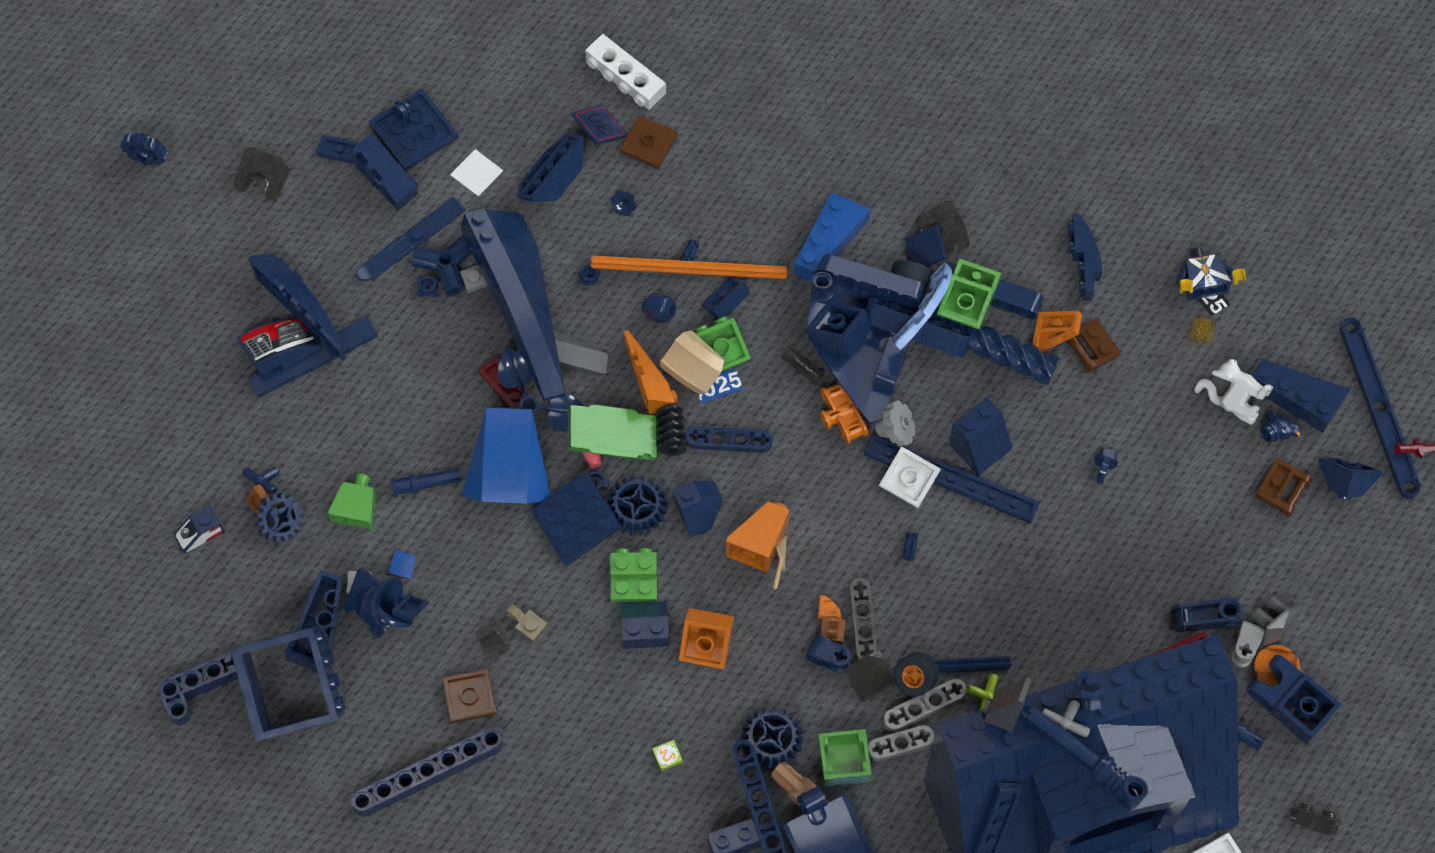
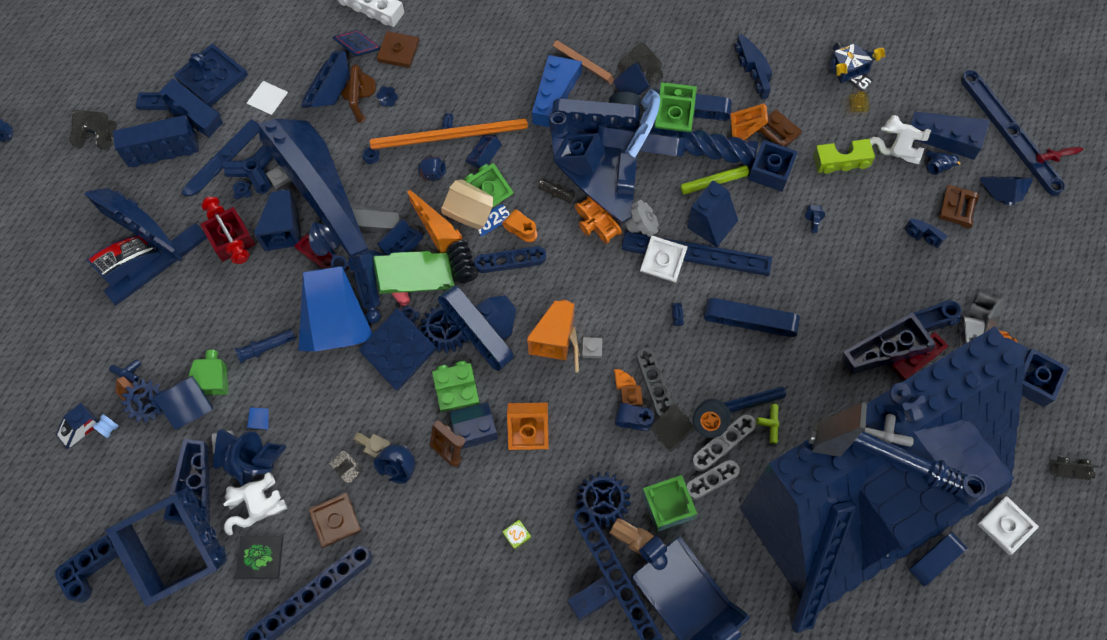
camera: 10 degrees left, 0 degrees up
(231, 536) = (105, 426): none -> light blue wheel
(324, 528) = (183, 402): none -> dark blue slope
(337, 206) = (156, 141): none -> dark blue brick
(379, 718) = (259, 557): none -> black tile
(388, 661) = (256, 501): none -> white animal
(403, 337) = (226, 232): none -> dark red brick
(467, 338) = (279, 222): none -> dark blue slope
(549, 647) = (396, 462): none -> dark blue cylinder
(554, 436) = (366, 285): none -> dark blue plate
(590, 182) = (358, 87): none -> reddish brown piece
(604, 388) = (400, 239): none -> dark blue bracket
(605, 633) = (441, 441): none -> reddish brown plate
(670, 513) = (475, 328): none -> beam
(747, 399) = (520, 226): none -> orange piece
(801, 564) = (592, 347): none -> light grey plate
(875, 209) = (590, 66): none -> nougat tile
(995, 568) = (752, 317): none -> dark blue beam
(997, 392) = (719, 178): none -> lime axle
(1070, 390) = (772, 165): none -> dark blue brick
(1140, 634) = (891, 344): none -> dark blue wedge
(1143, 398) = (829, 159): none -> lime arch
(1226, 506) = (919, 229): none -> dark blue slope

